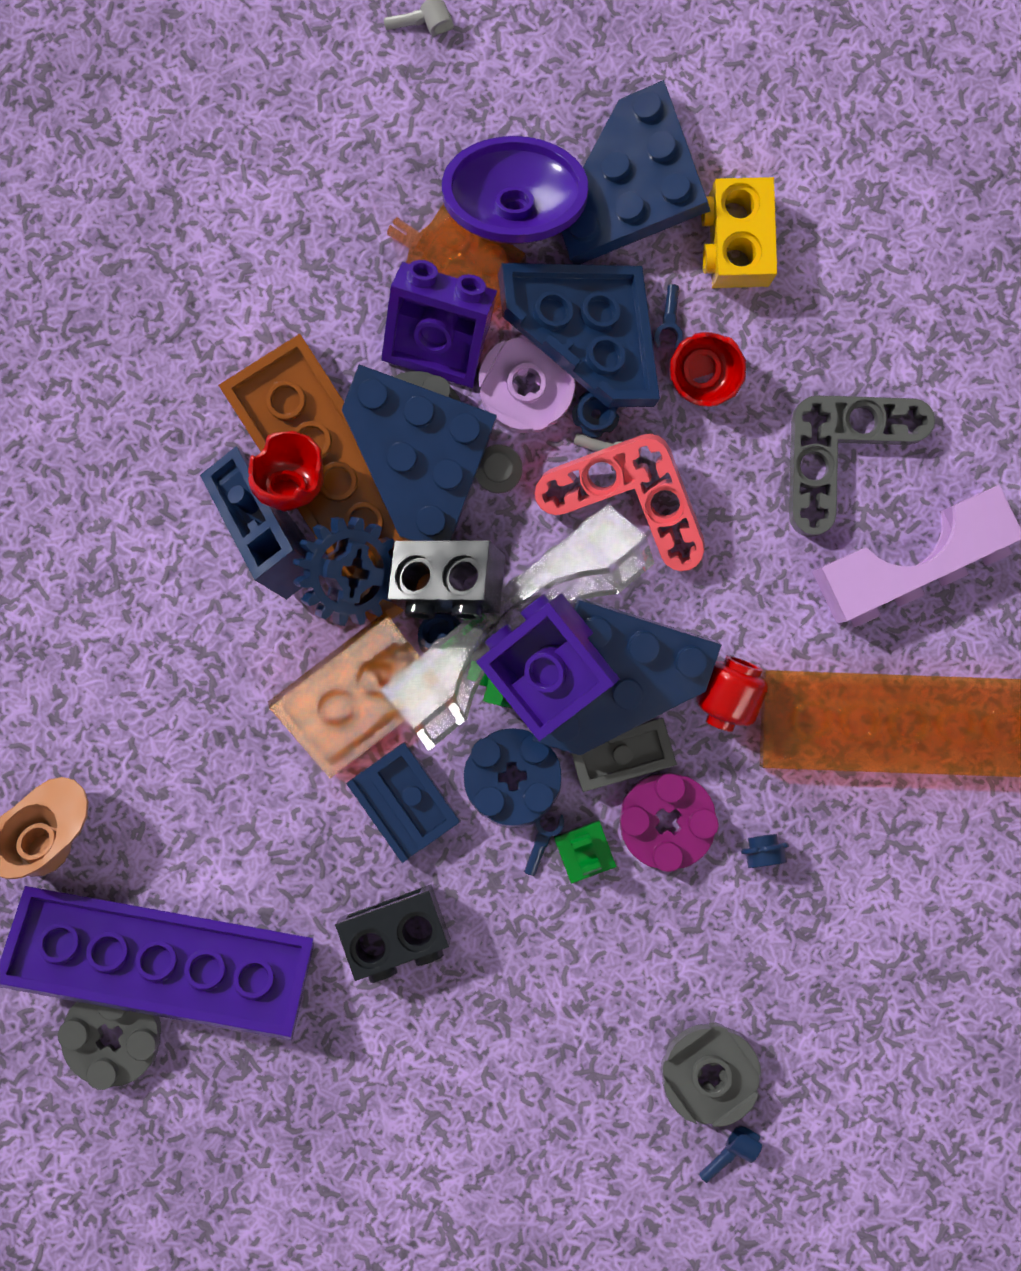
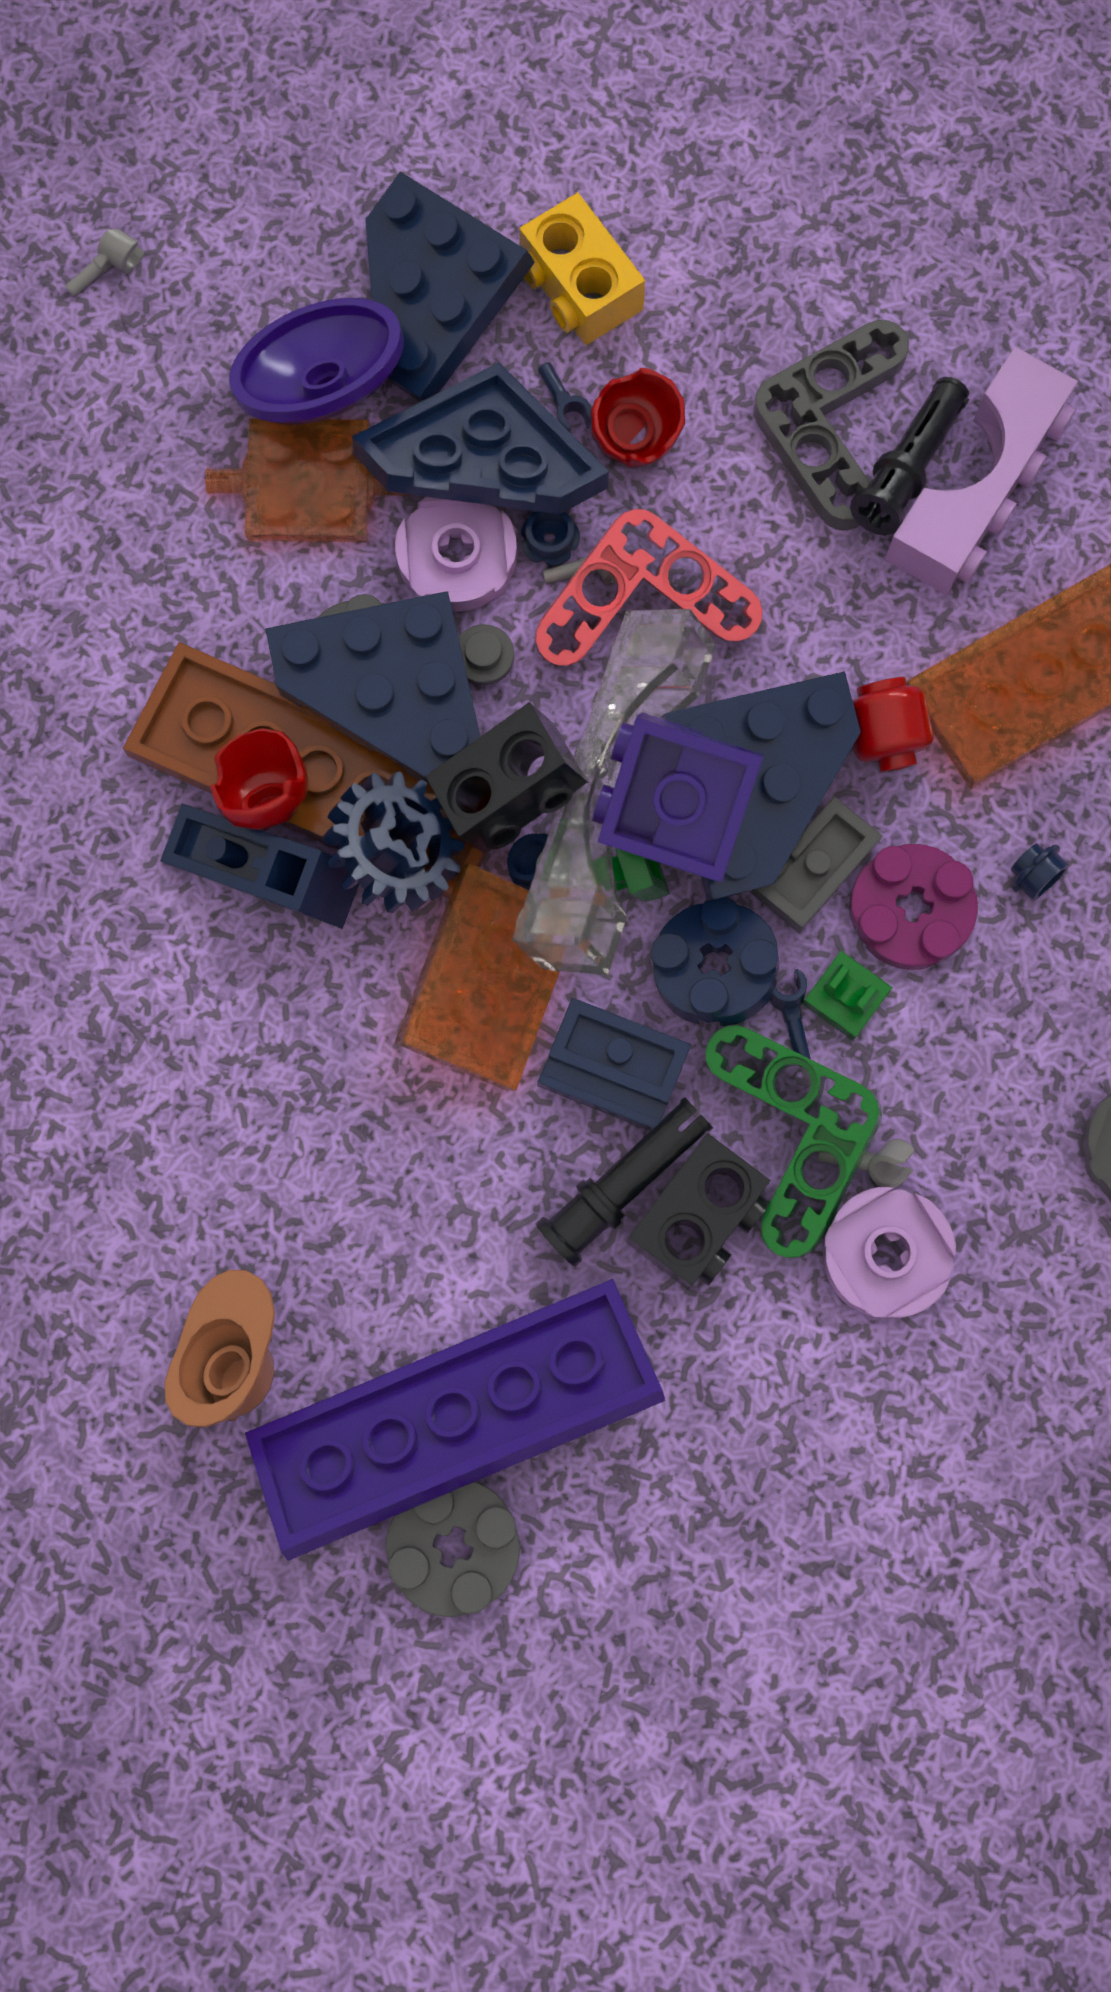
camera: 30 degrees left, 10 degrees down
(338, 886) = (601, 1201): none -> black pin
(437, 322) = (323, 537): dark purple plate -> none
(476, 1052) = (924, 1264): none -> lavender plate
(508, 933) = (821, 1135): none -> green beam
(533, 979) = (882, 1164): none -> light grey hand
(860, 523) = (901, 472): none -> black pin

